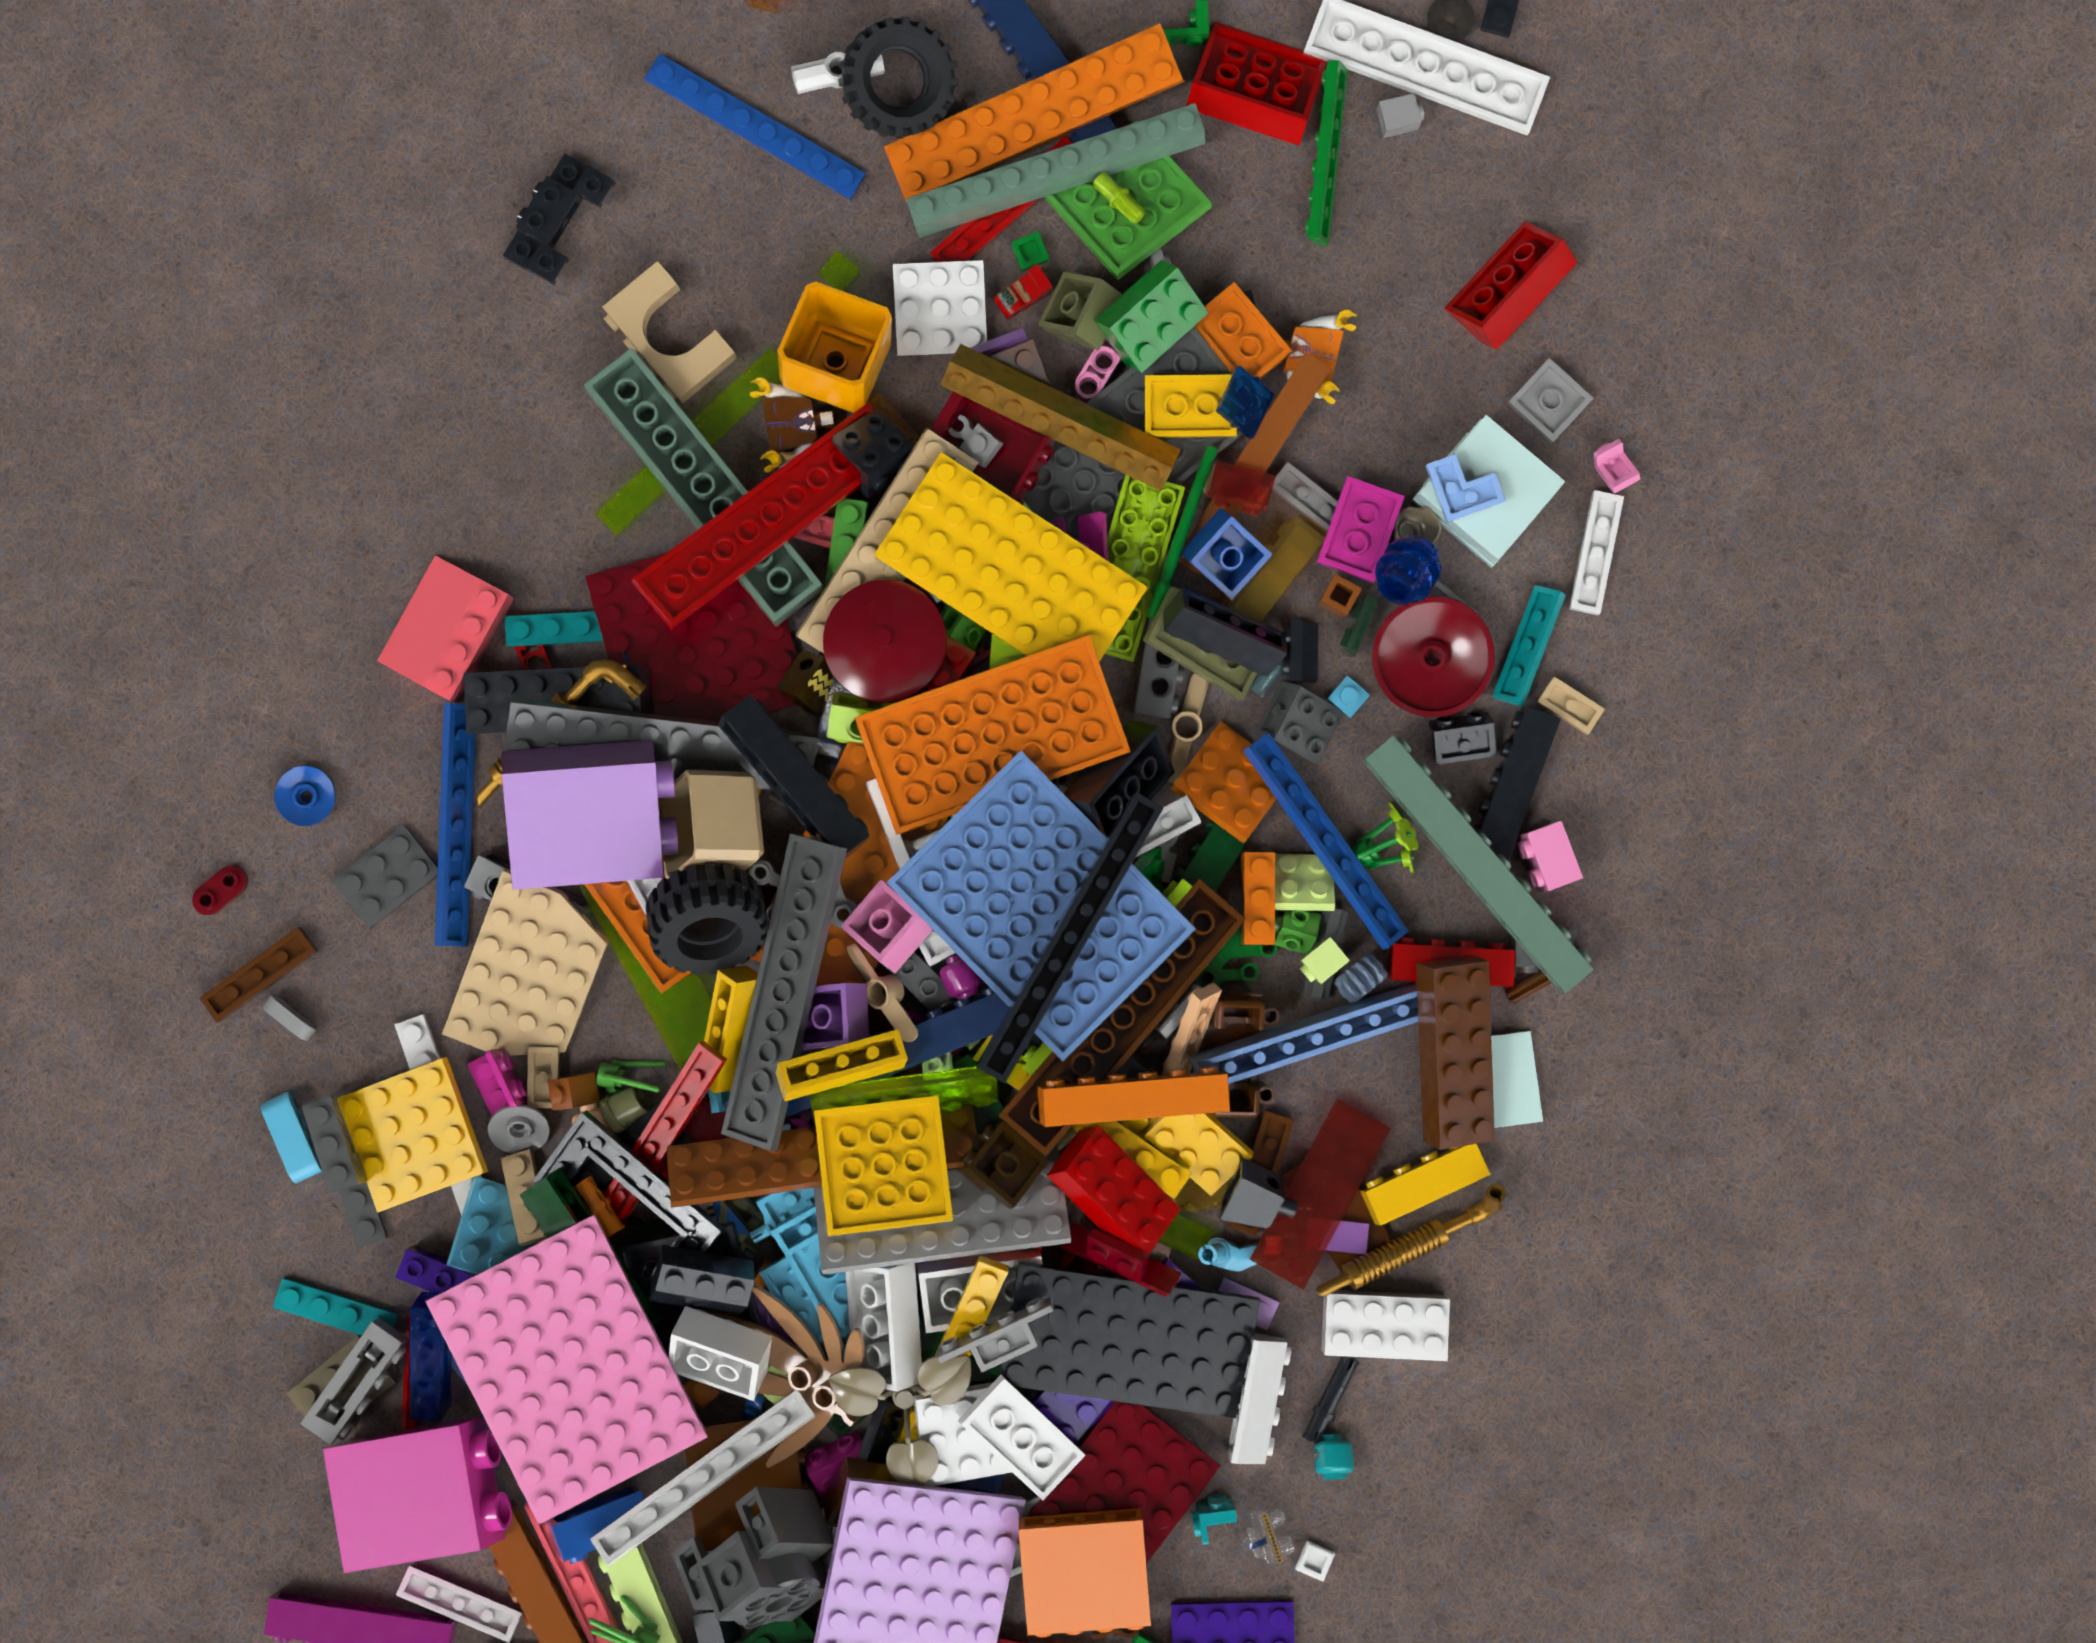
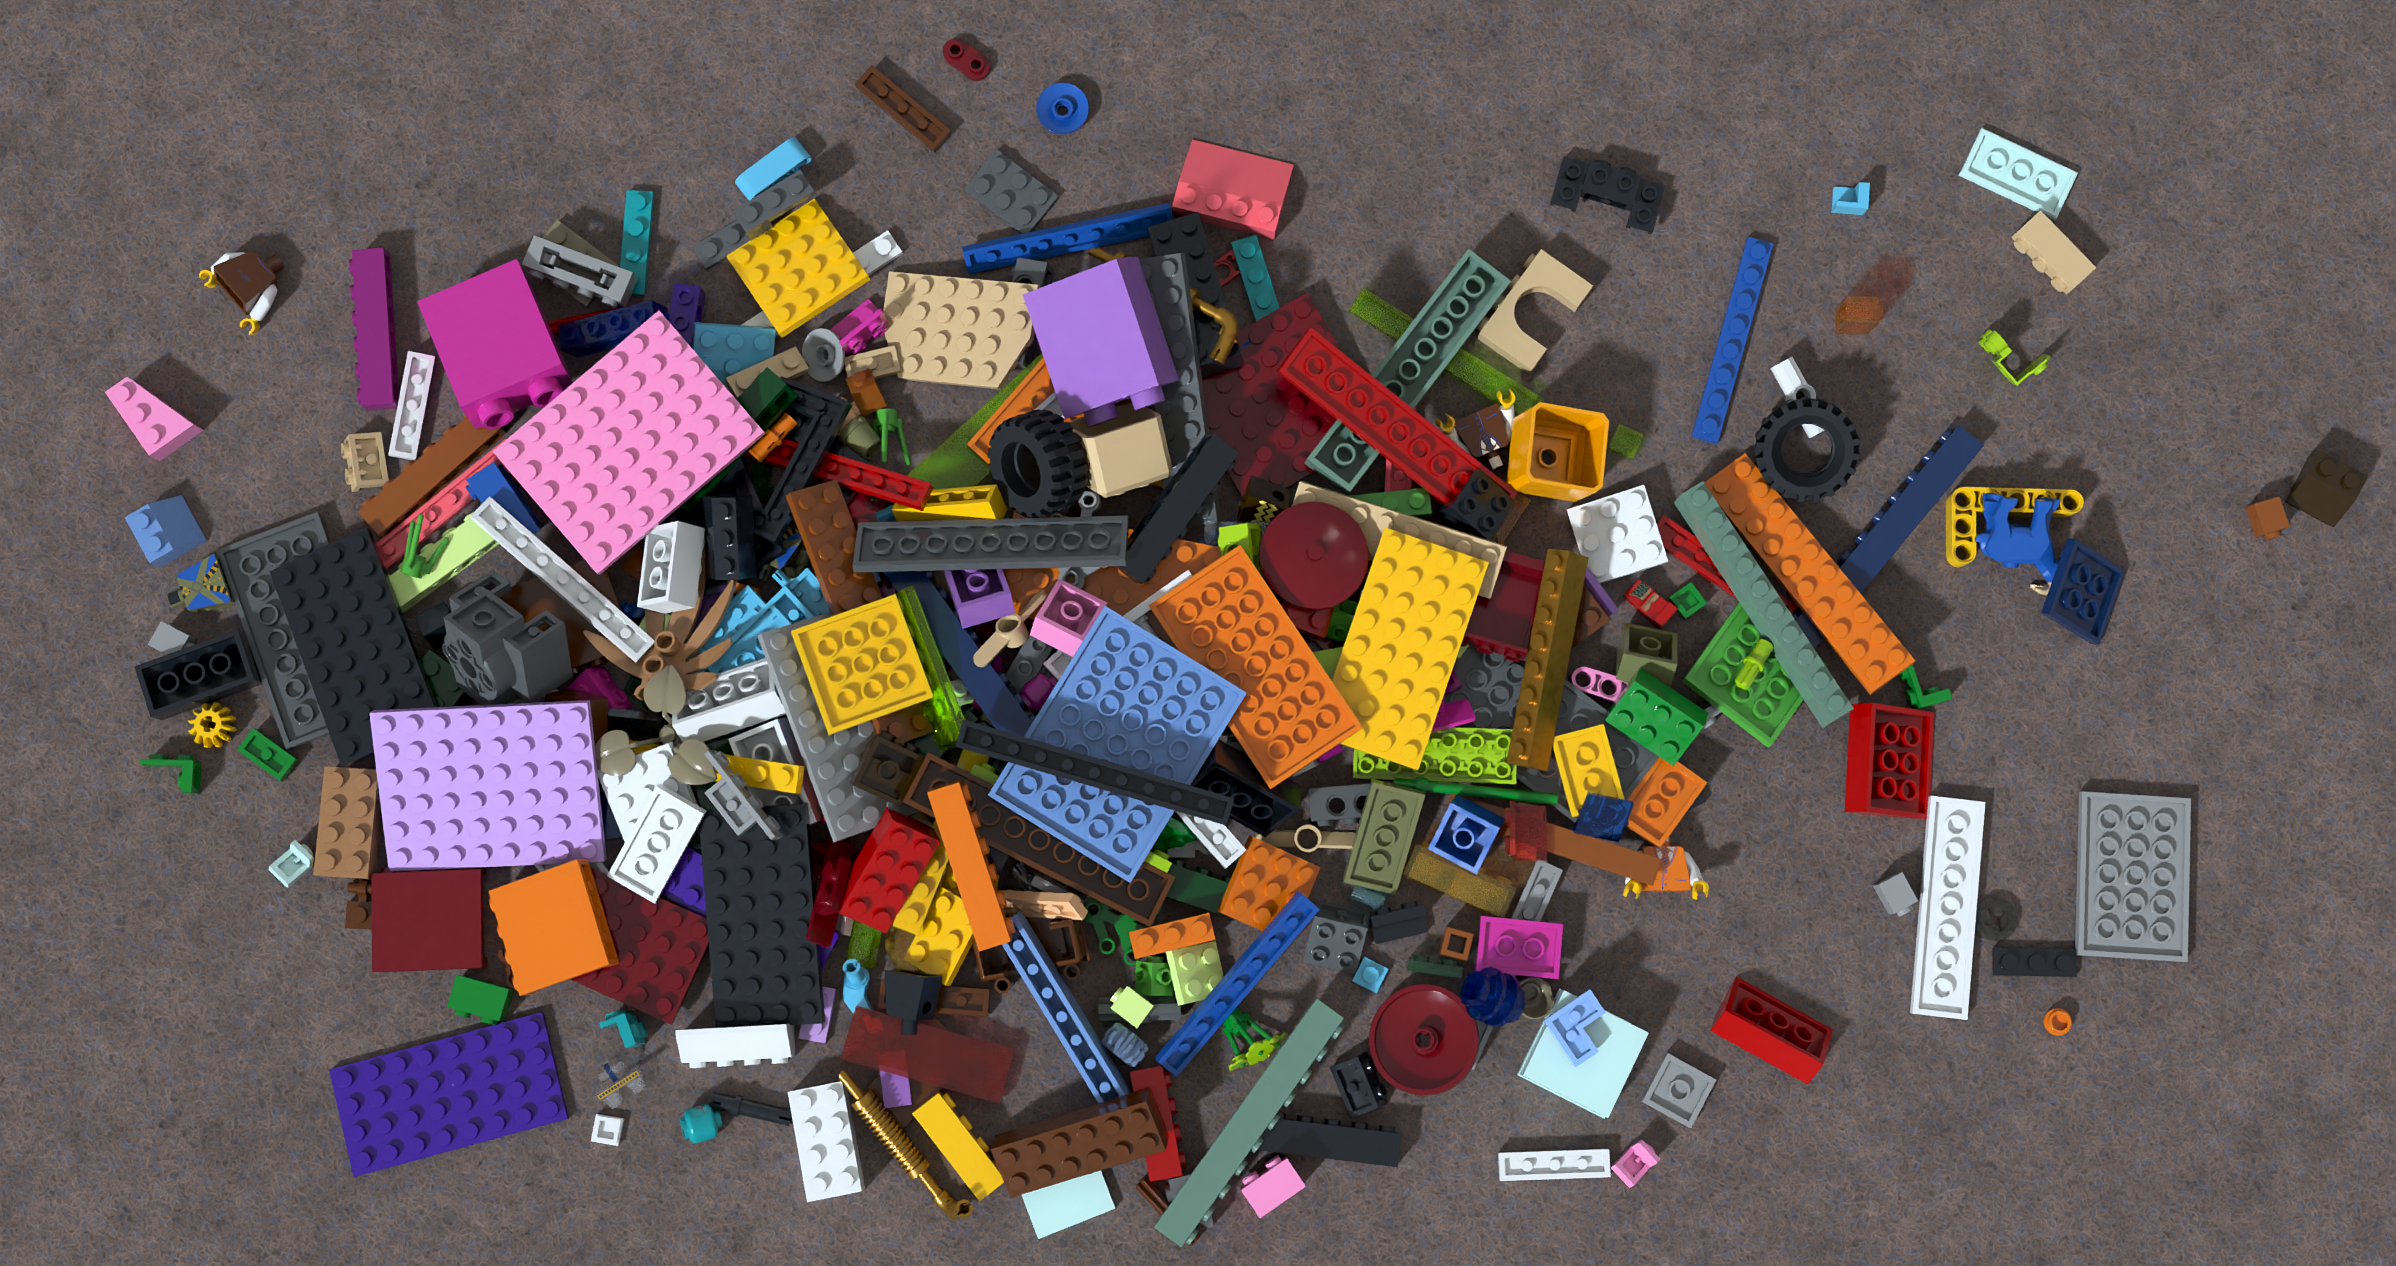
camera: 75 degrees right, 5 degrees down
(289, 1017) = (872, 142): light grey beam -> none
(841, 1065) = (939, 606): yellow brick -> none
(978, 441) = (1508, 595): light grey plate -> none
(1224, 632) = (1396, 848): black brick -> none
(1328, 143) = (1846, 838): green plate -> none
(1528, 645) = (1455, 1124): teal plate -> none
(1570, 705) = (1412, 1174): tan plate -> none

